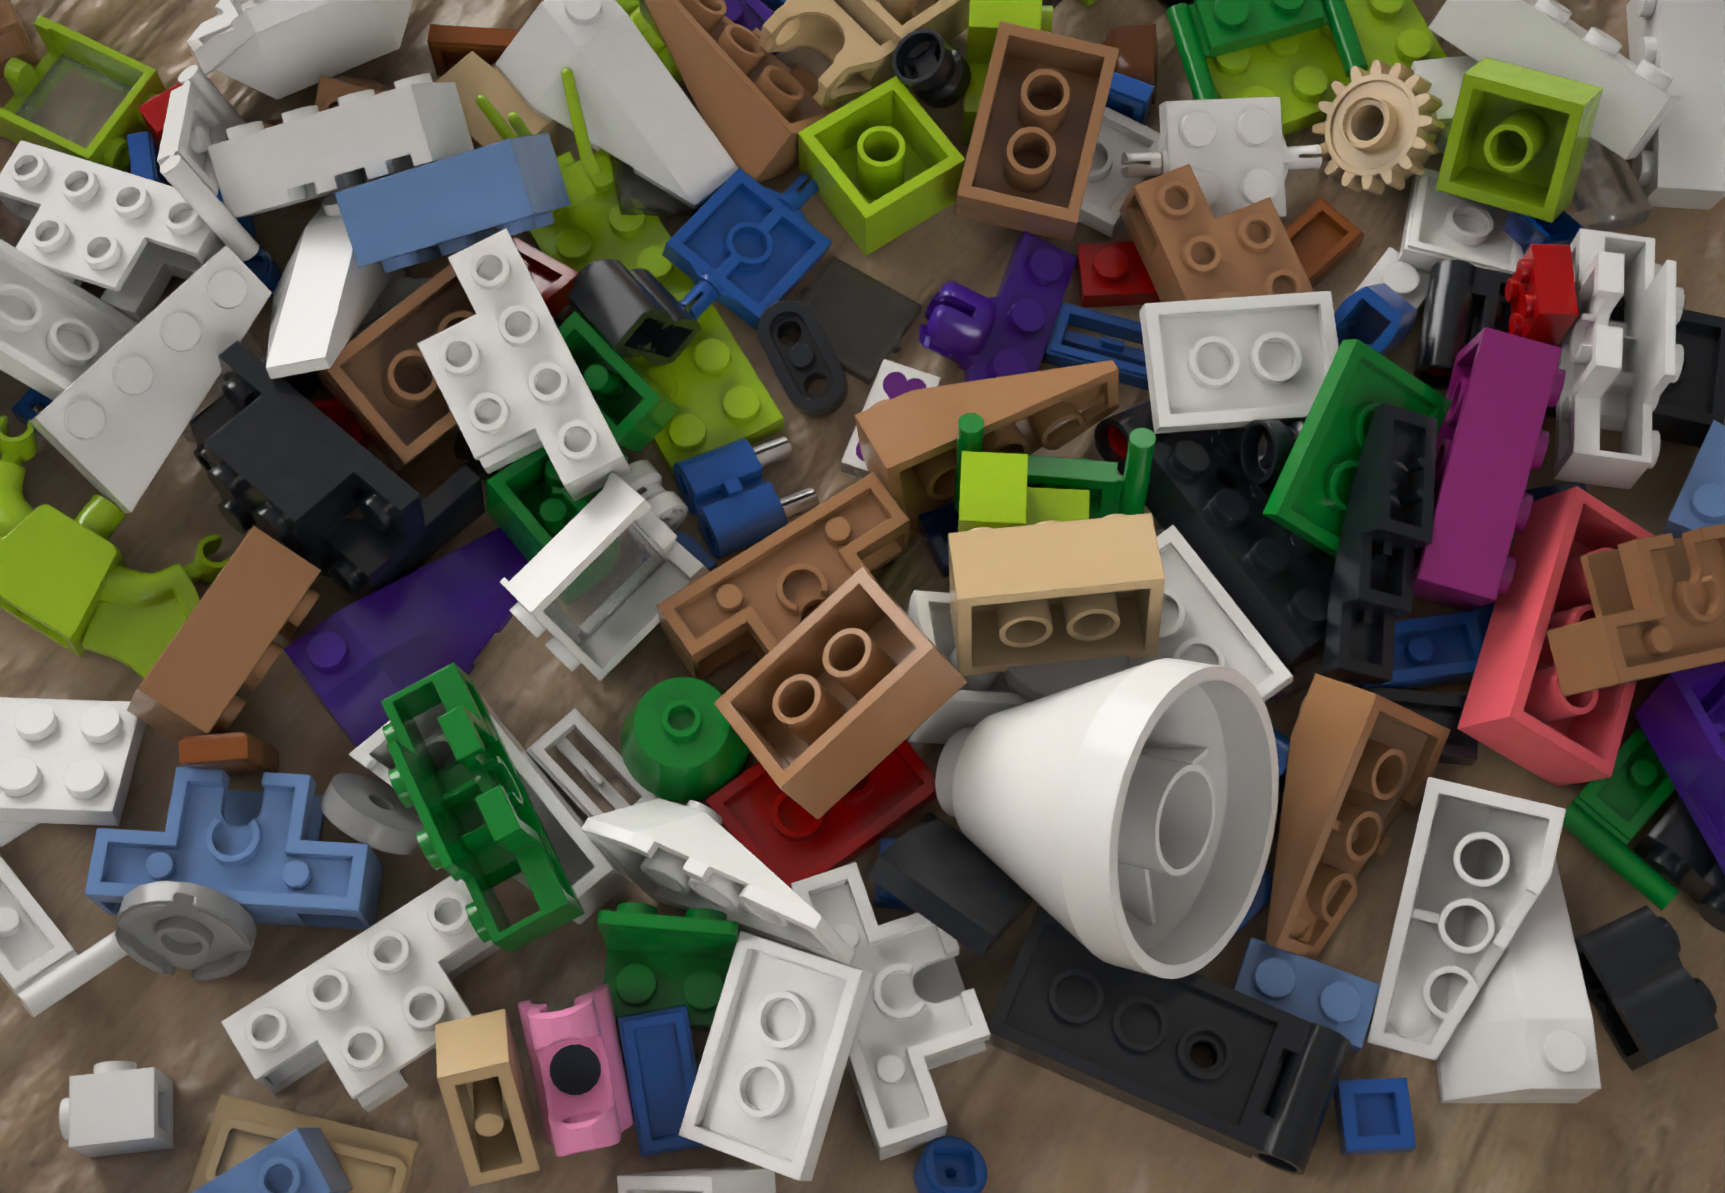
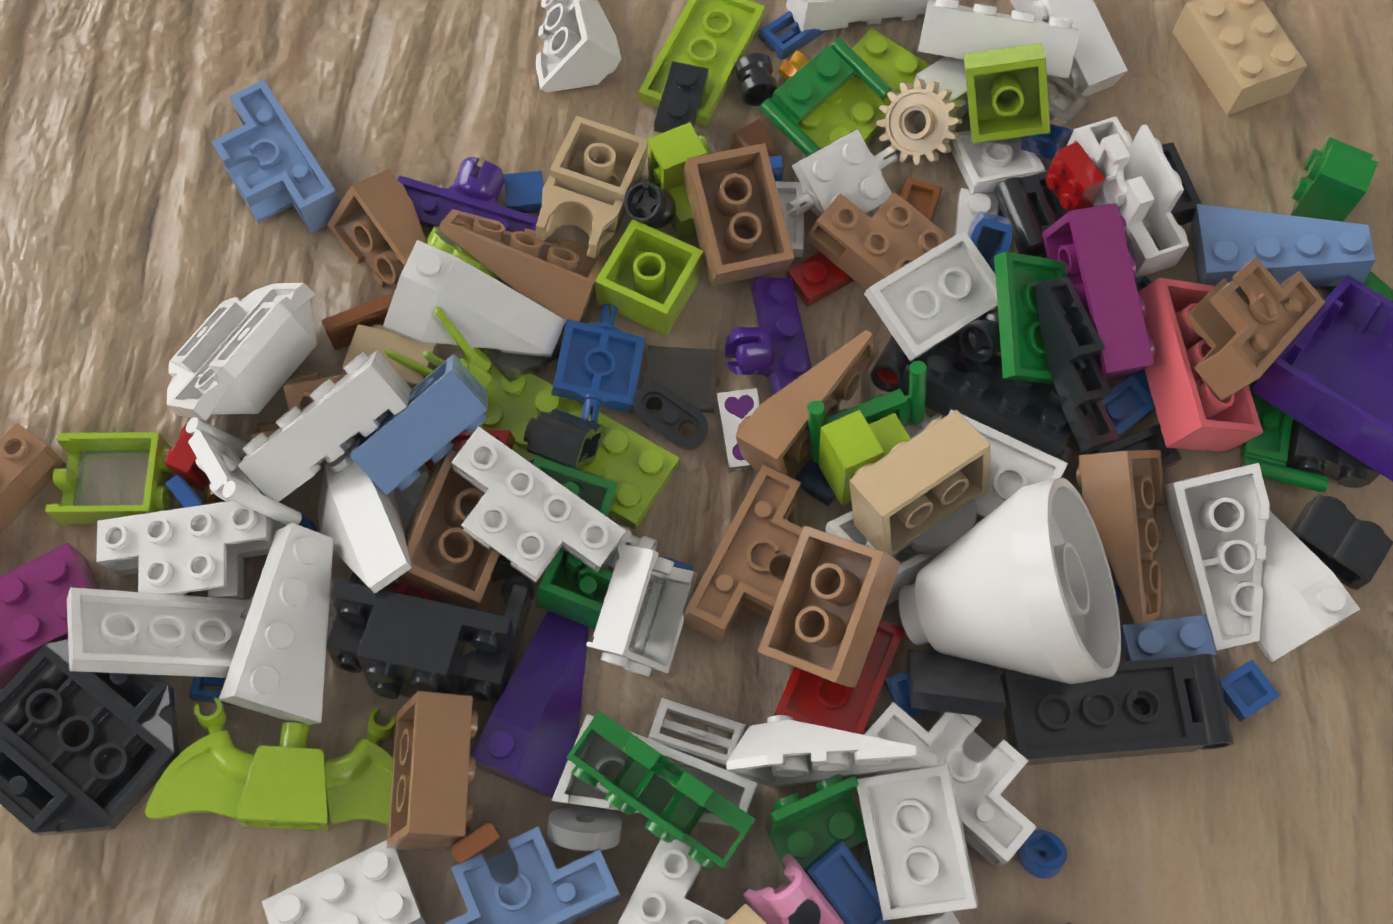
camera: 30 degrees left, 0 degrees up
(681, 741) = (738, 682): green cone -> none
(732, 497) = (680, 522): blue piece -> none
(1073, 348) = (842, 335): blue tile -> none

